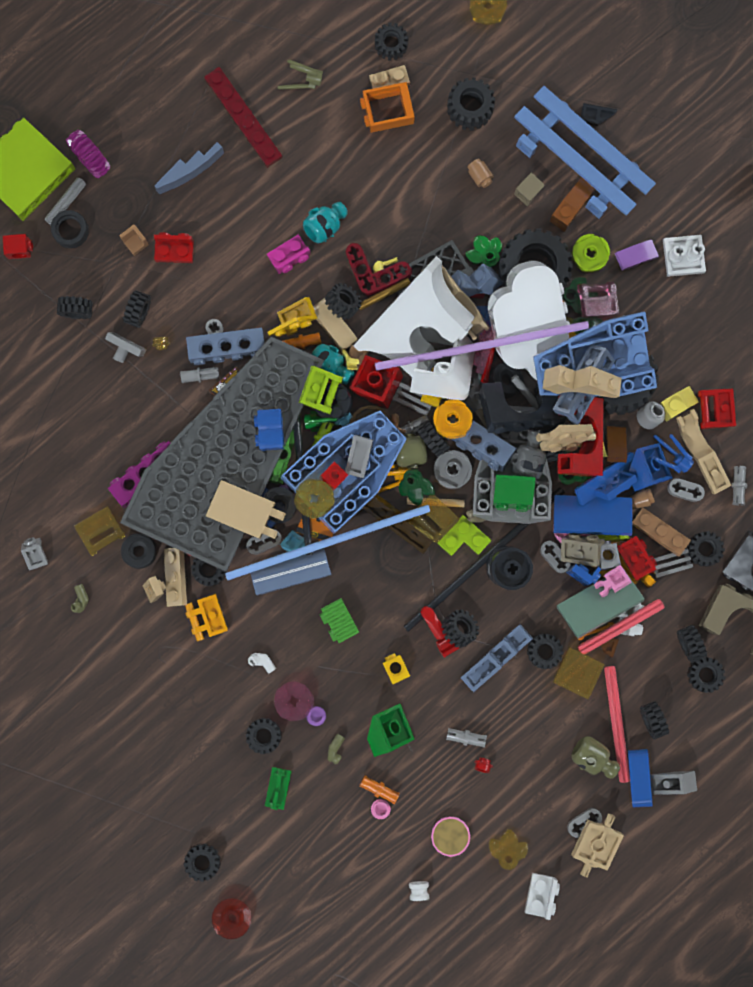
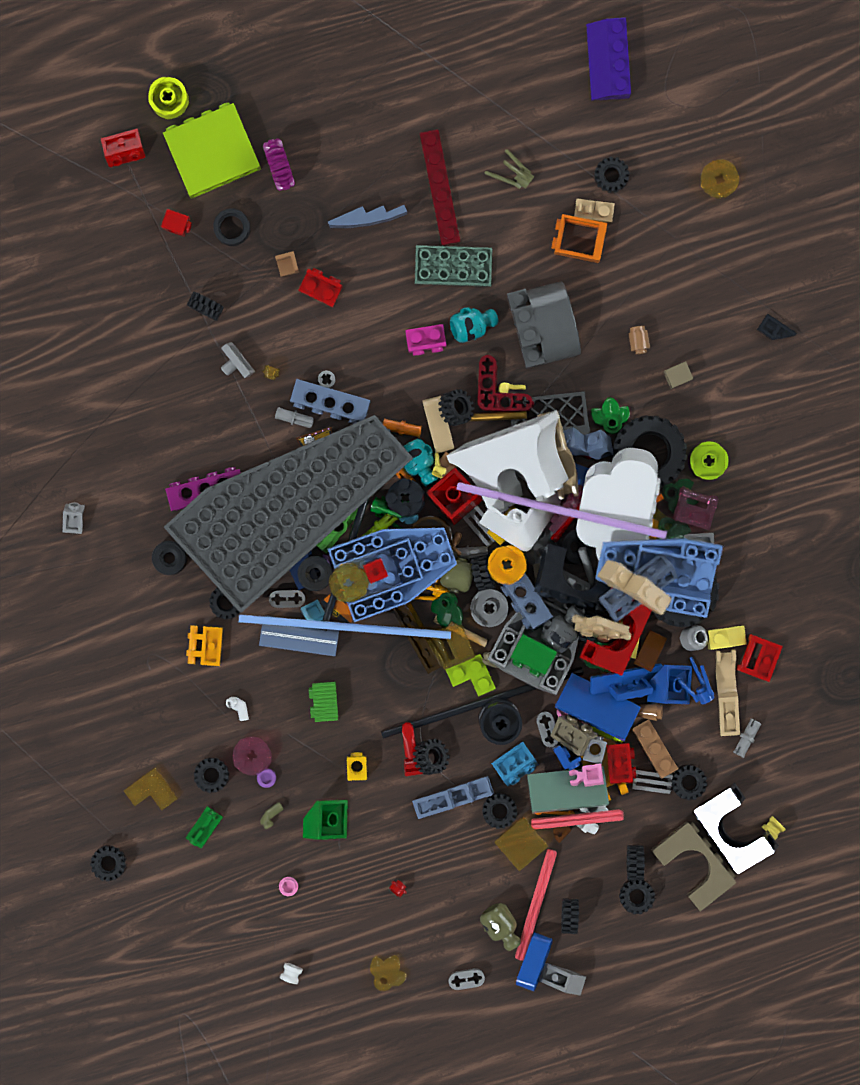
camera: 30 degrees right, 5 degrees up
(66, 199) = (239, 197): light grey axle -> none
(82, 599) = (99, 580): olive arm -> none
(96, 525) = (141, 517): clear yellow plate -> none
(137, 309) = (262, 332): black tyre -> none
(154, 588) = (168, 599): tan plate -> none
(175, 577) = (192, 596): tan plate -> none
(210, 770) = (152, 785): none -> clear yellow plate
(224, 926) = (107, 931): clear red dish -> none
(243, 510) = (280, 565): tan tile -> none
(270, 429) = (335, 502): blue brick -> none
(285, 180) = (453, 265): none -> sand green tile
(293, 317) = (404, 404): yellow bracket -> none
(315, 387) = (394, 480): lime plate -> none
(359, 456) = (406, 562): light grey tile -> none
(379, 789) = (294, 868): orange pin -> none
(391, 188) = (544, 322): none -> dark grey piece
(450, 836) = (340, 938): pearl gold tile -> none
(466, 737) = (393, 857): light grey pin -> none
(470, 89) = (666, 254): black tyre -> none
(540, 602) = (515, 764): none -> dark azure bracket
(541, 896) = (398, 1026): white bracket -> none
(542, 132) = (713, 325): medium blue fence -> none
(572, 204) = (714, 405): dark orange slope -> none
(597, 845) = (468, 1003): tan plate -> none
(636, 255) = (751, 481): medium lavender slope -> none
(684, 255) = (795, 501): white plate -> none
(687, 486) = (693, 724): light grey beam -> none

